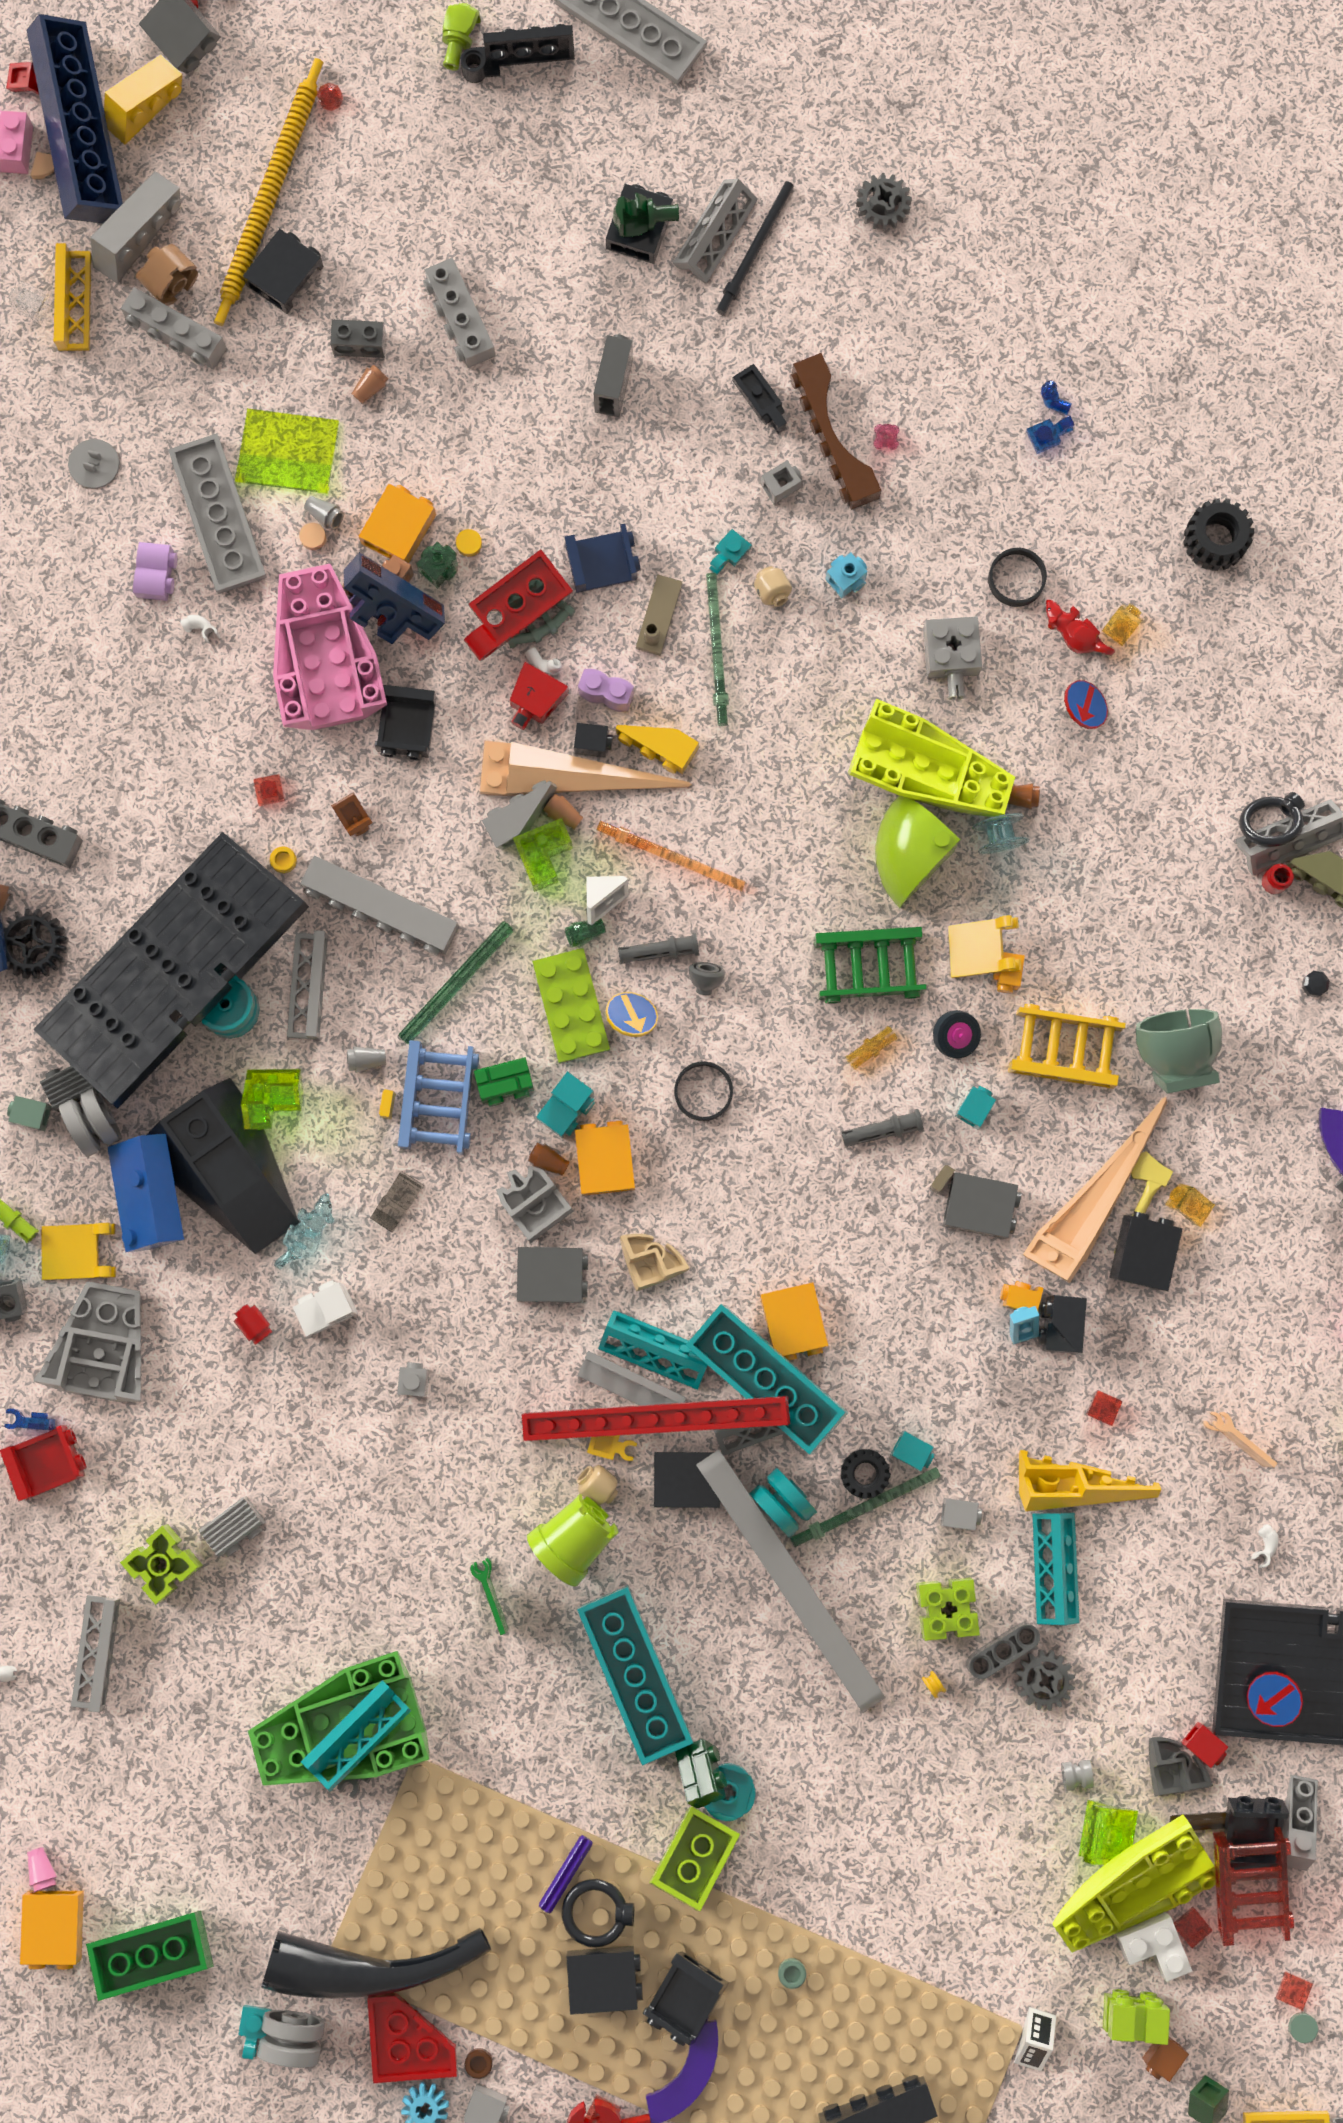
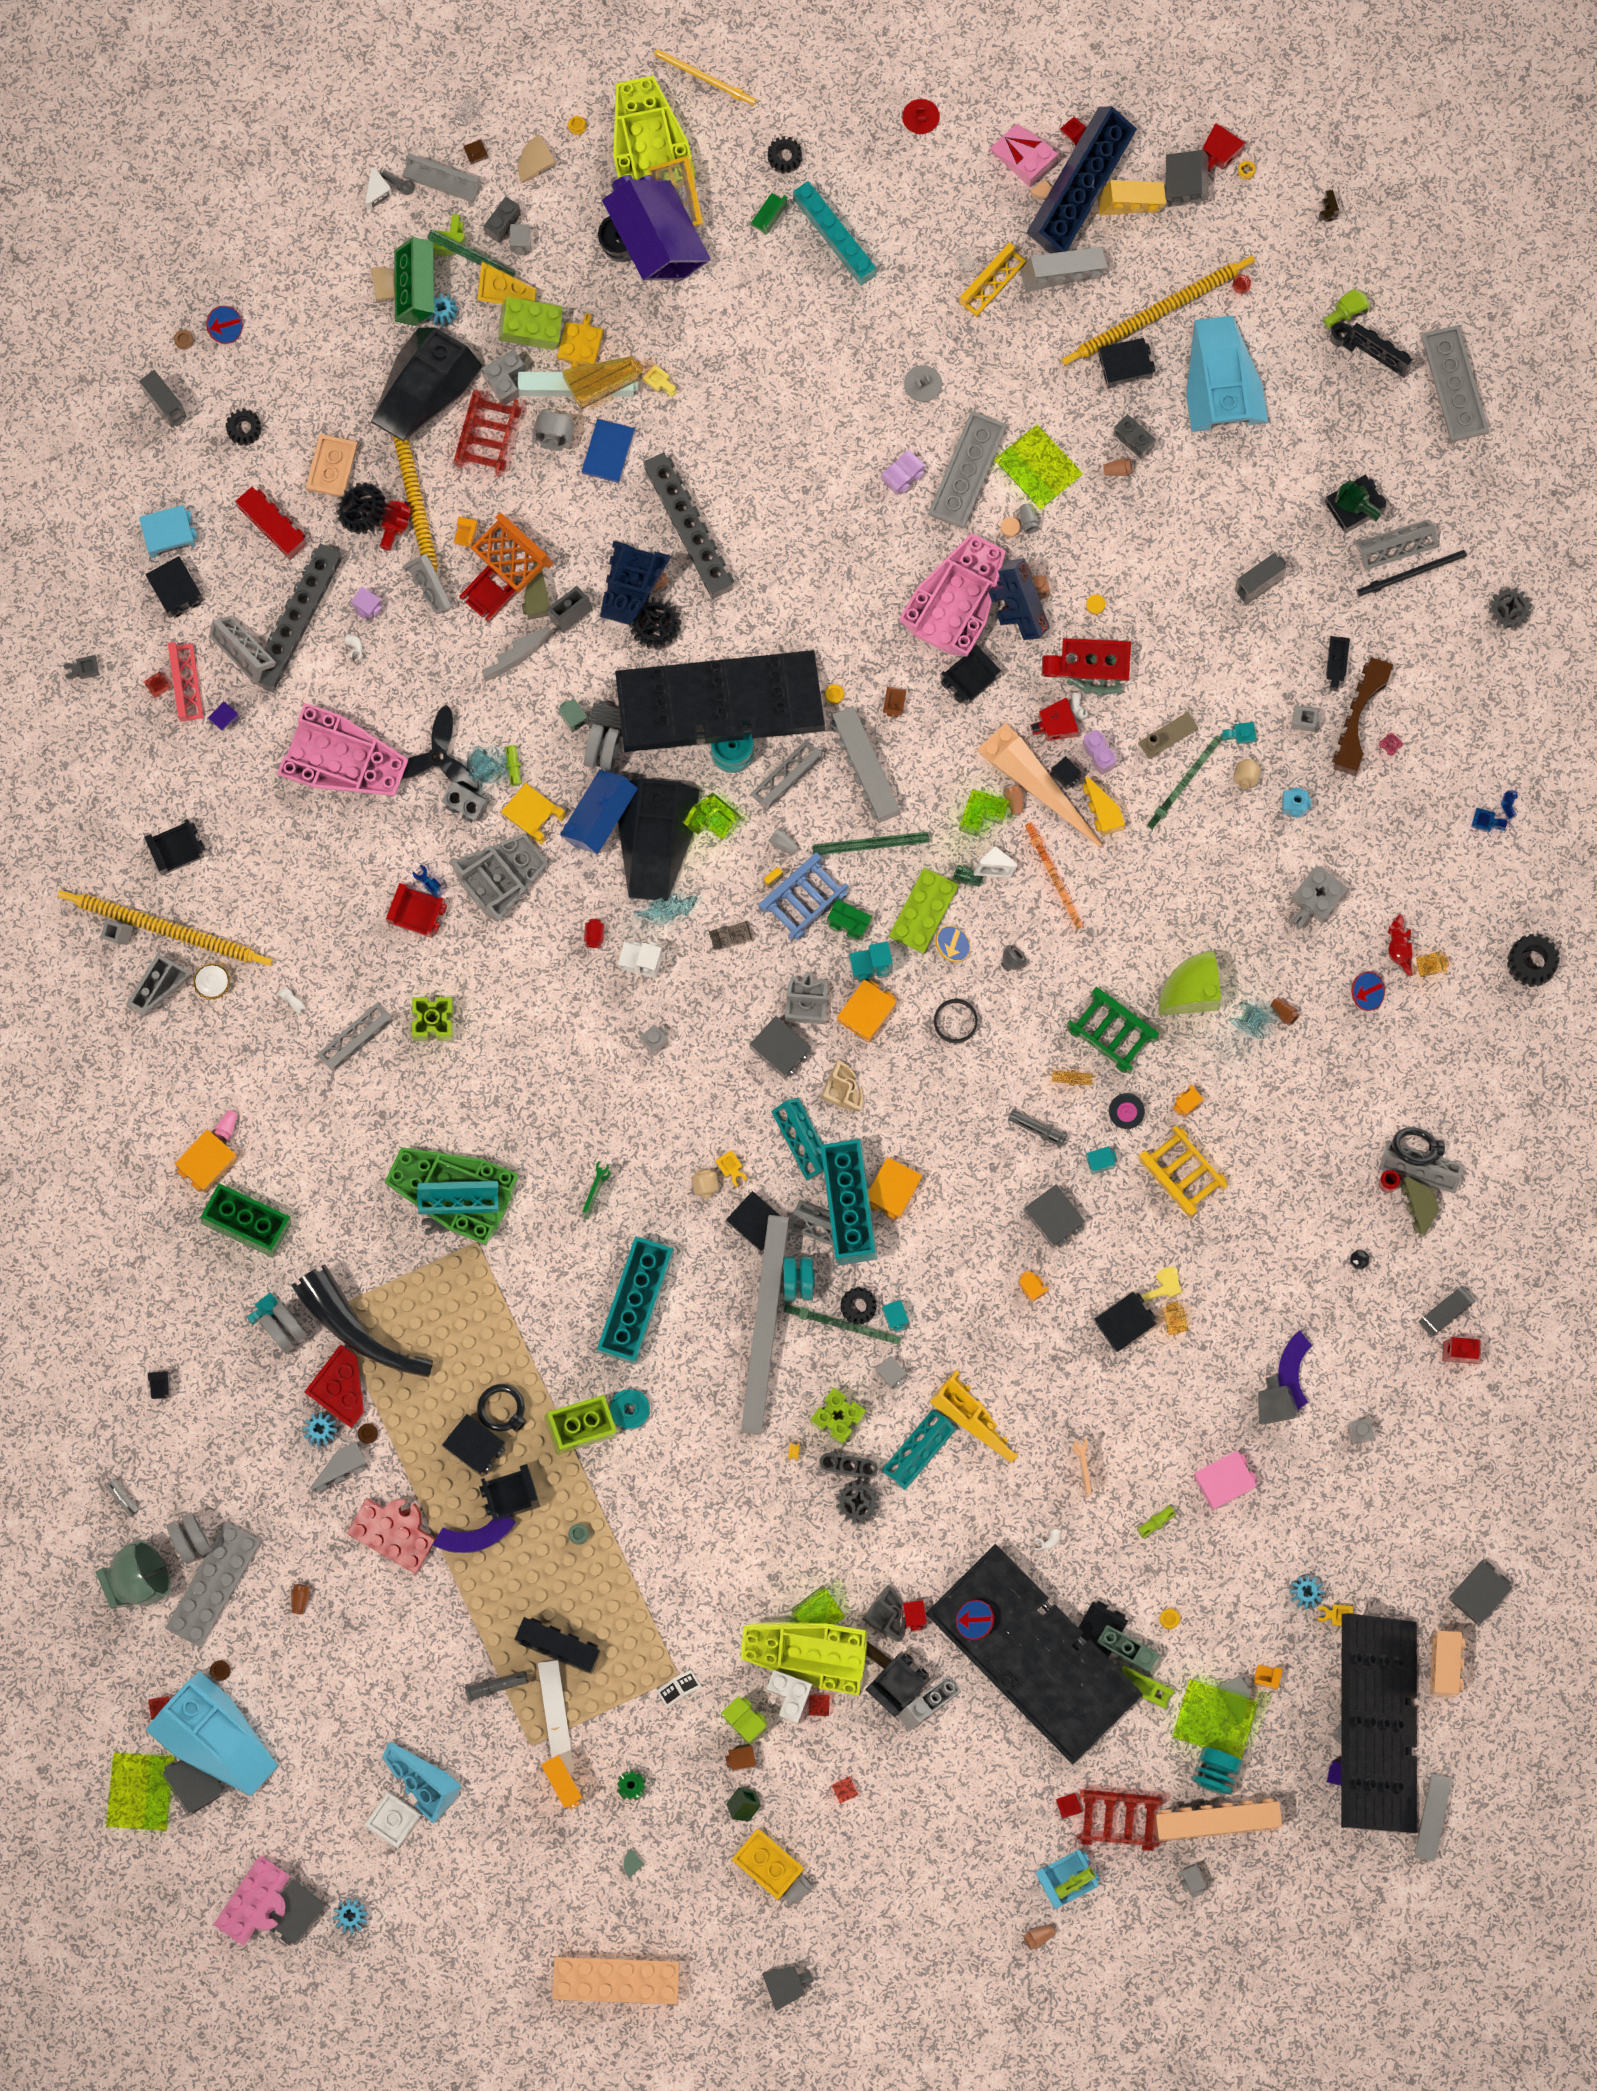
camera: 45 degrees right, 5 degrees down
(167, 273) = (1057, 311): medium nougat brick -> none
(173, 328) = (1034, 344): light grey brick -> none
(198, 622) = (903, 522): white arm -> none
(232, 1527) = (487, 1033): light grey brick -> none
(269, 790) = (860, 648): clear red plate -> none
(393, 206) = (1222, 377): none -> medium azure wedge
(397, 523) = (1064, 560): light orange brick -> none
(438, 564) = (1066, 601): clear green brick -> none
(459, 313) = (1205, 470): light grey brick -> none
(518, 815) = (987, 780): light grey slope -> none
(548, 1159) = (835, 983): dark orange cone -> none
(565, 1874) = (503, 1373): dark purple axle -> none
(572, 1539) = (666, 1196): lime piece -> none
(602, 560) = (1162, 677): dark blue panel -> none
(625, 1382) = (771, 1146): light grey fence -> none
(656, 1418) = (768, 1170): red plate -> none
(672, 947) = (1008, 926): dark grey pin -> none
(700, 1773) = (624, 1383): brick -> none
(927, 764) = (1244, 946): neon yellow wedge -> none
(941, 1179) = (1045, 1183): dark tan tile -> none
(978, 947) = (1182, 1073): yellow flag -> none
(1017, 551) = (1397, 867): black tyre -> none
(1024, 1324) = (1019, 1300): medium azure plate -> none
(1063, 1324) = (1045, 1316): black slope -> none
(1073, 1231) = (1094, 1275): light nougat plate -> none
(1075, 1775) = (829, 1568): light grey wheel -> none
(1104, 1408) = (1024, 1386): clear red plate -> none
(1181, 1054) = (1242, 1221): sand green plate -> none
(1227, 1876) = (851, 1704): clear red fence -> none
(1303, 2027) = (831, 1813): sand green tile -> none

